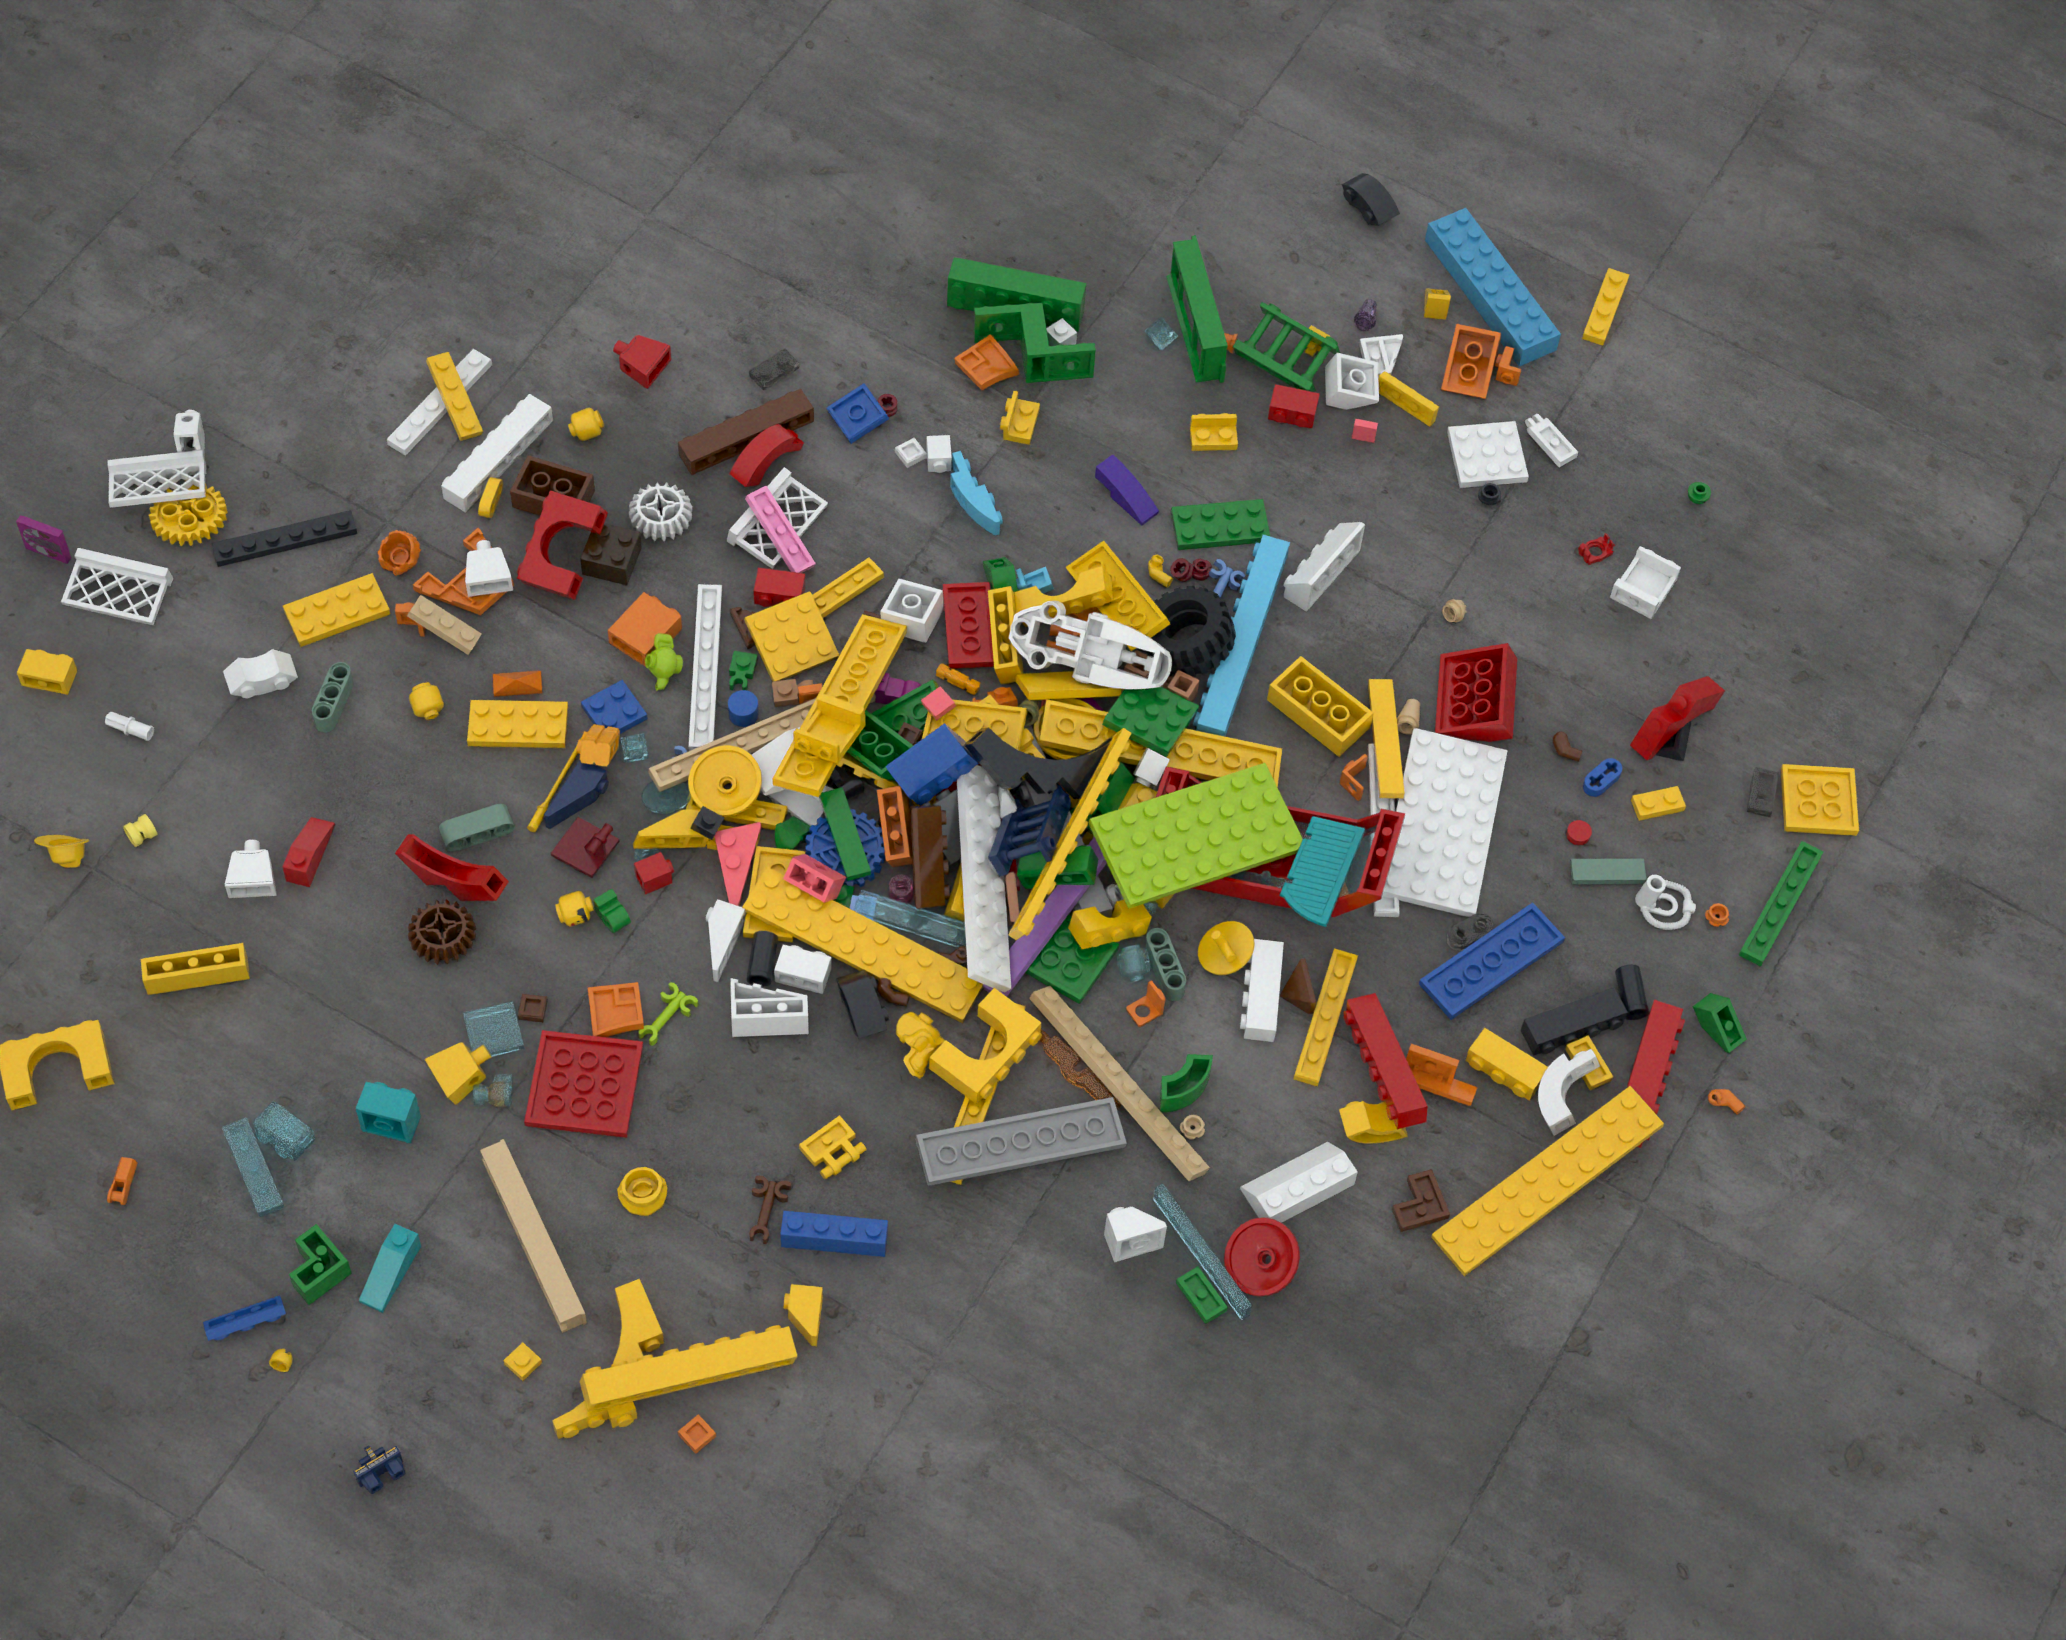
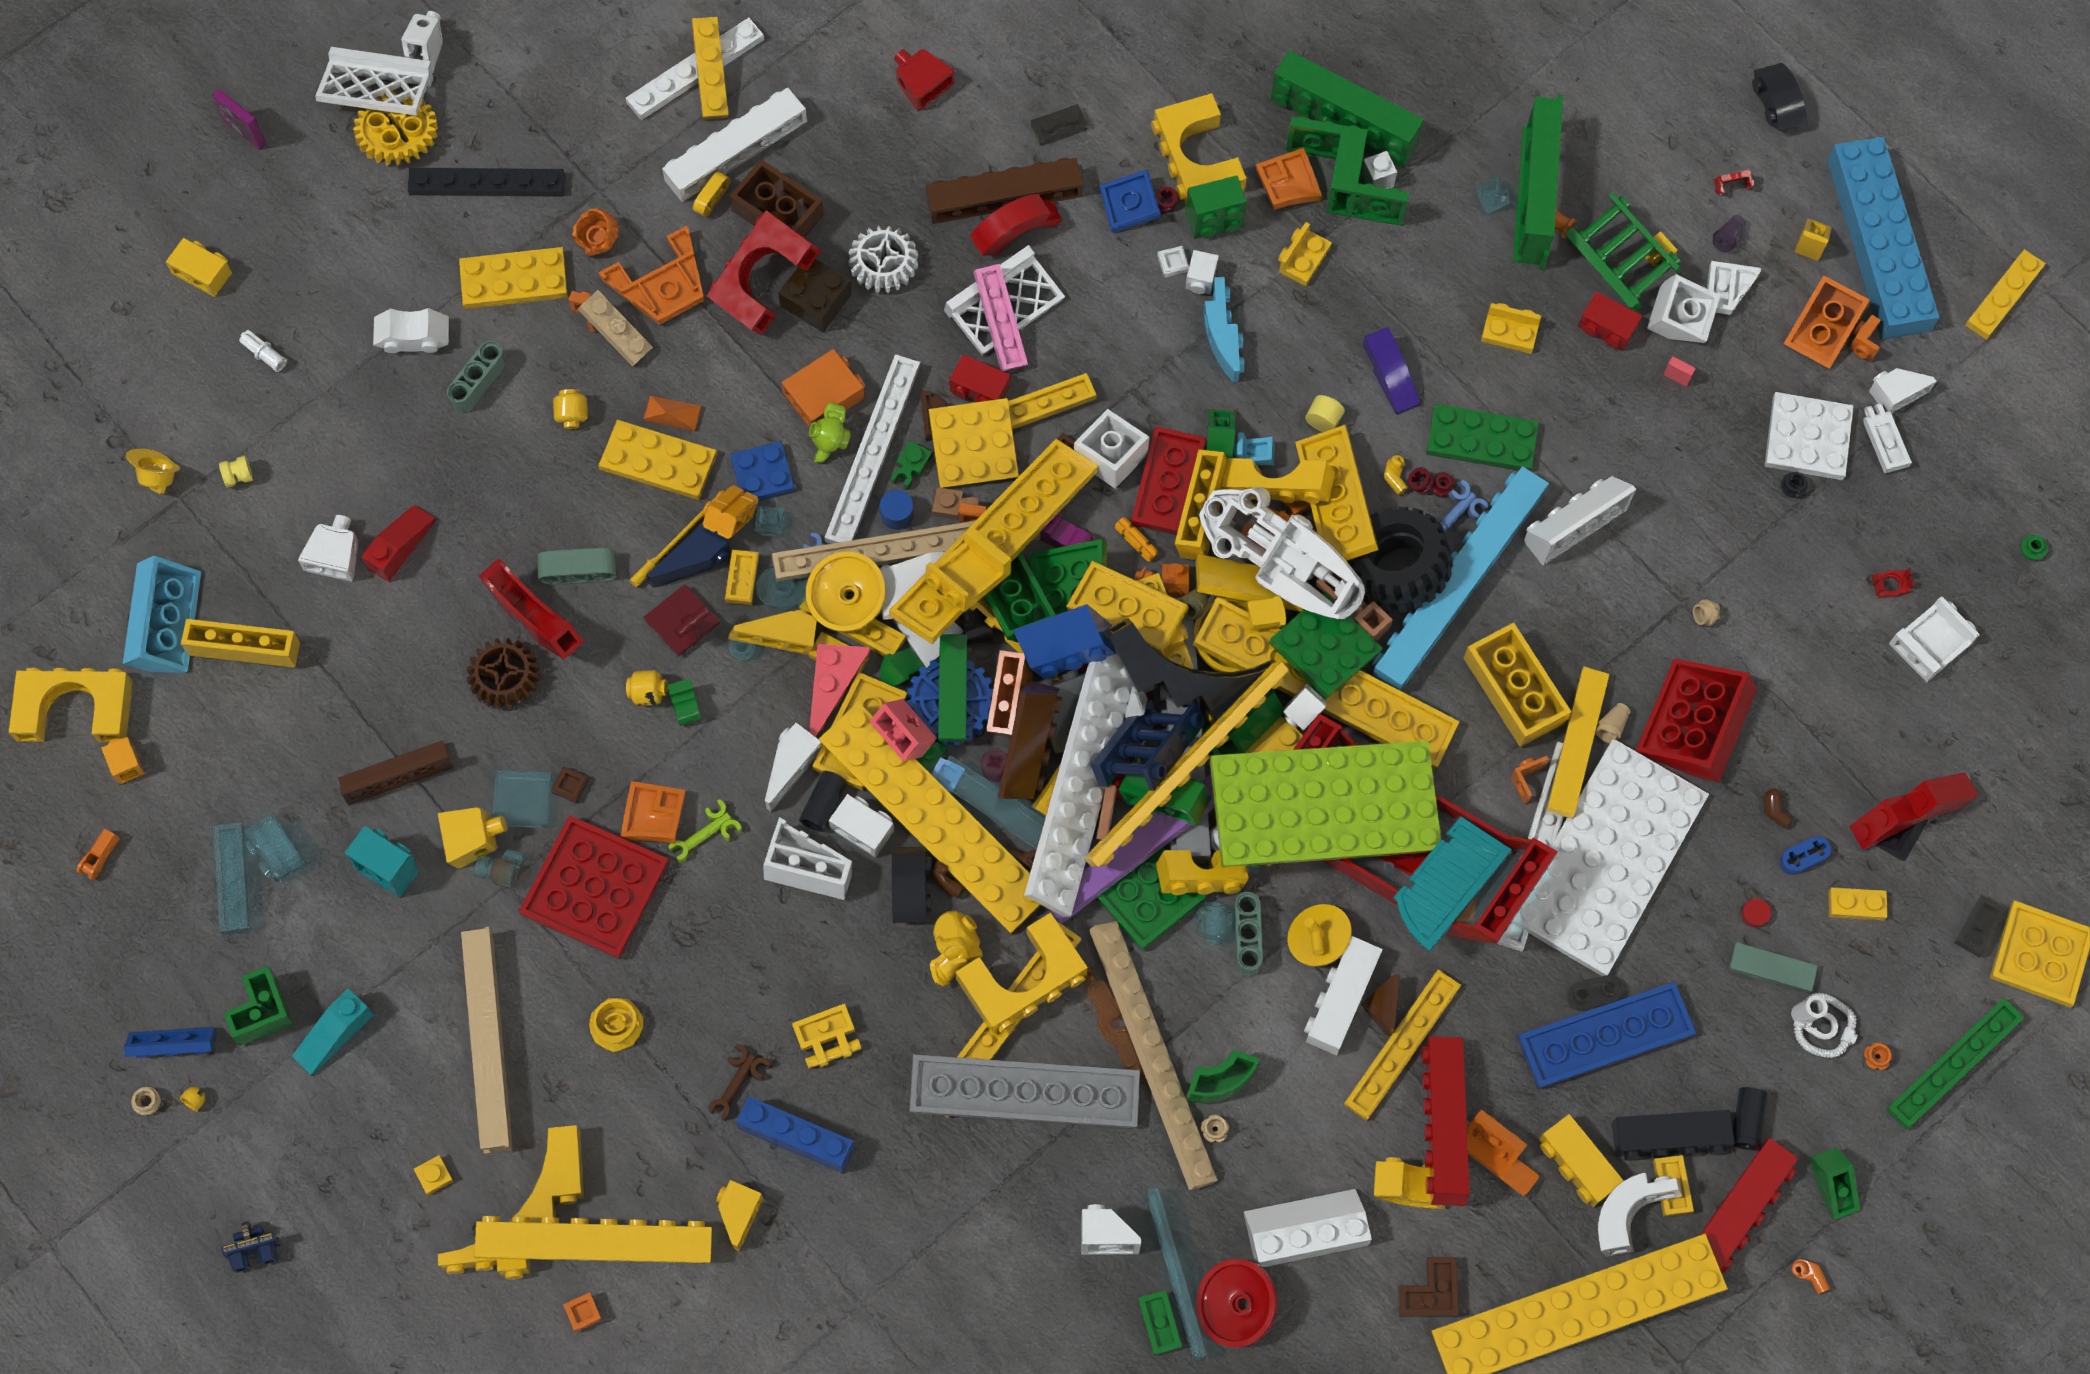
camera: 20 degrees right, 10 degrees up
(112, 967) = (160, 604): none -> medium azure slope
(118, 1096) = (122, 760): none -> light orange brick
(125, 569) = (314, 175): white fence -> none
(233, 1369) = (140, 1095): none -> tan plate
(372, 1040) = (395, 772): none -> reddish brown fence
(487, 571) = (676, 279): white torso -> none
(586, 424) = (838, 136): yellow head -> none
(626, 798) = (742, 577): none -> yellow plate
(653, 872) = (742, 670): red brick -> none
(707, 823) = (812, 633): black plate -> none
(907, 384) = (1178, 123): none -> yellow arch
(910, 733) = (1058, 596): reddish brown tile -> none
(933, 398) = (1215, 207): none -> green brick
(938, 703) = (1096, 571): coral tile -> none
(1082, 537) = (1324, 413): none -> light yellow piece
(1093, 701) = (1266, 613): none -> yellow tile
(1153, 1001) = (1222, 971): orange bracket -> none
(1363, 266) = (1746, 175): none -> red piece
(1407, 398) = (1740, 346): yellow plate -> none
(1548, 397) = (1900, 388): none -> white slope

